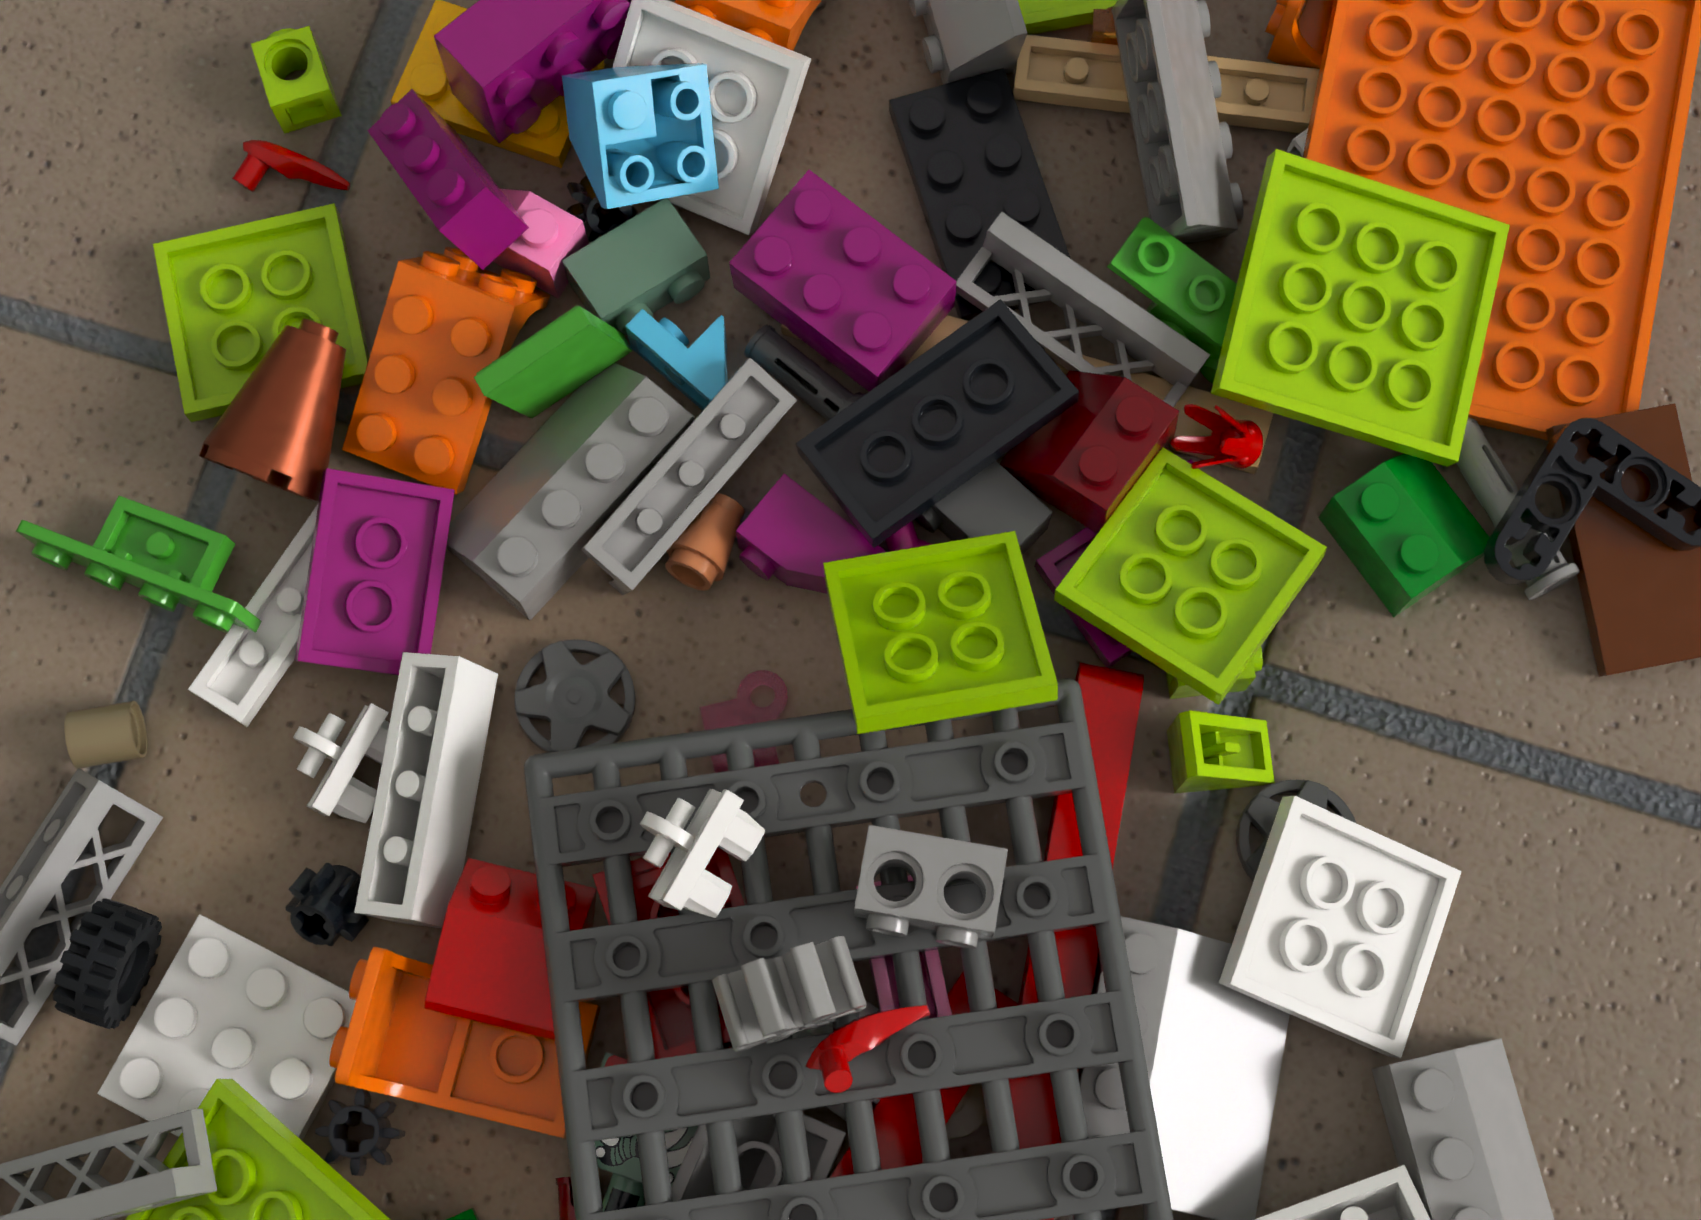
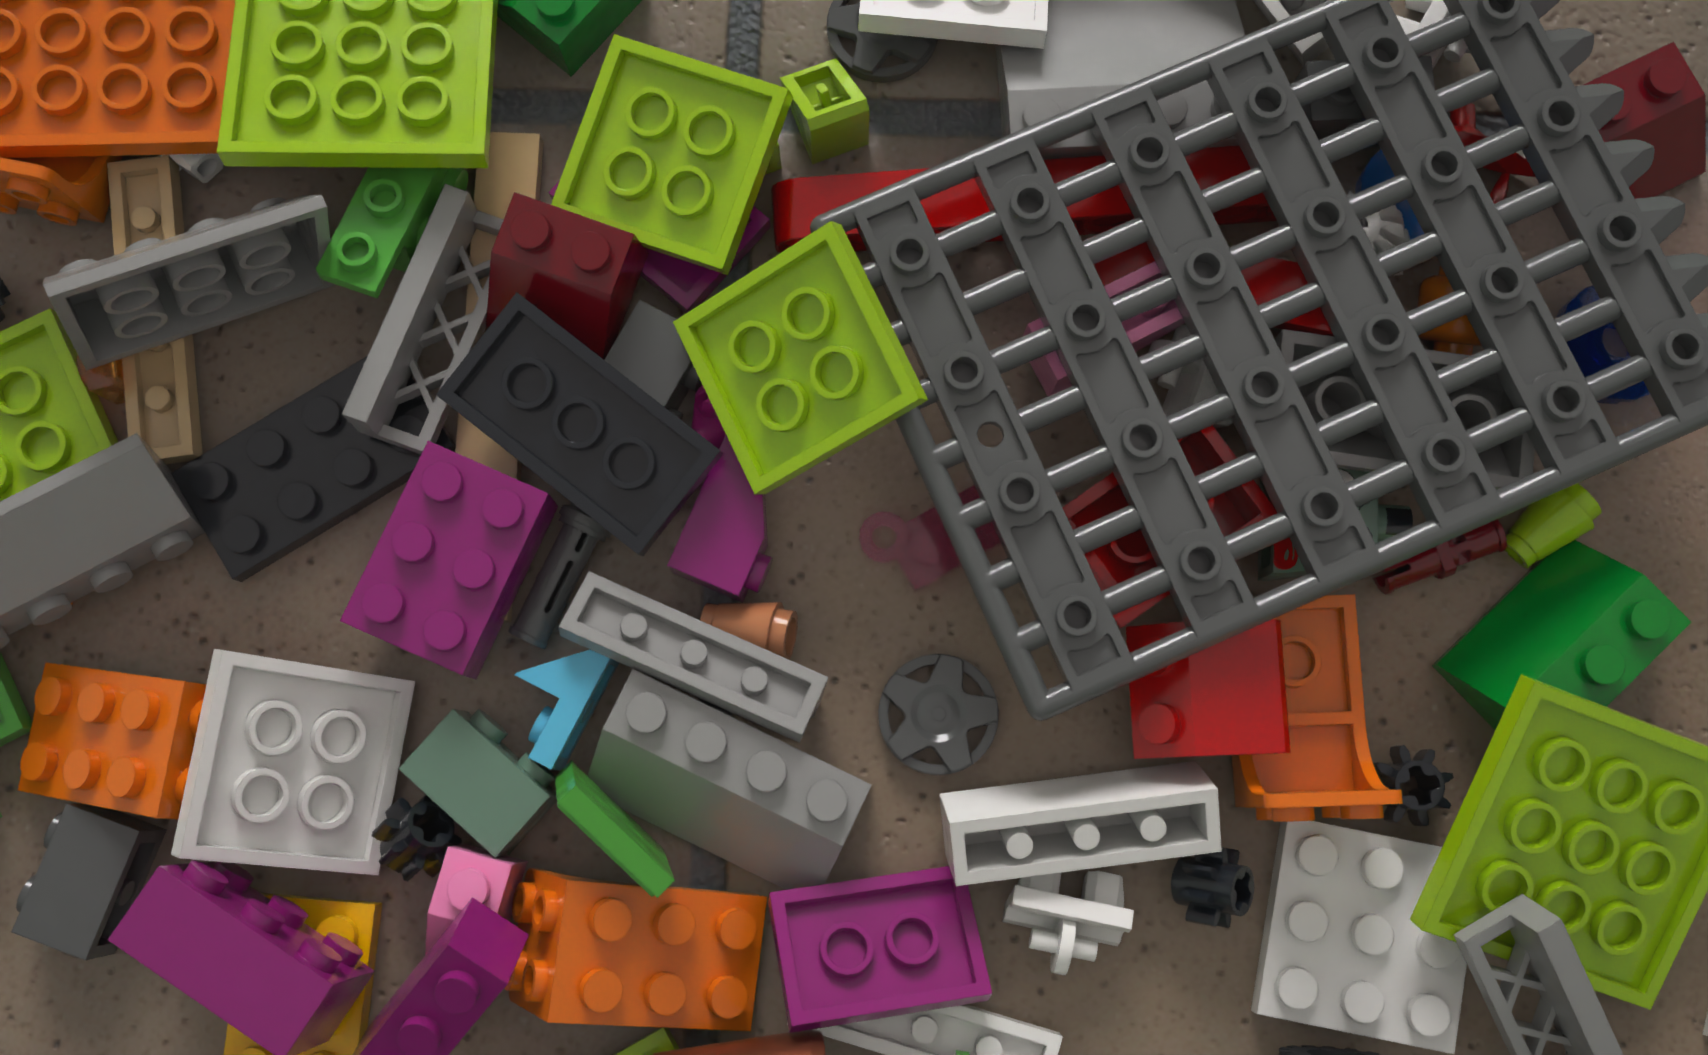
camera: 105 degrees left, 5 degrees up
(642, 131) = (332, 812): medium azure slope -> none
(714, 825) = (1091, 518): white hips -> none
(789, 993) = (1209, 379): light grey gear -> none
(856, 1038) = (1217, 323): red bar -> none
(932, 865) = (1043, 288): light grey brick -> none
(1230, 442) = (524, 155): red piece -> none

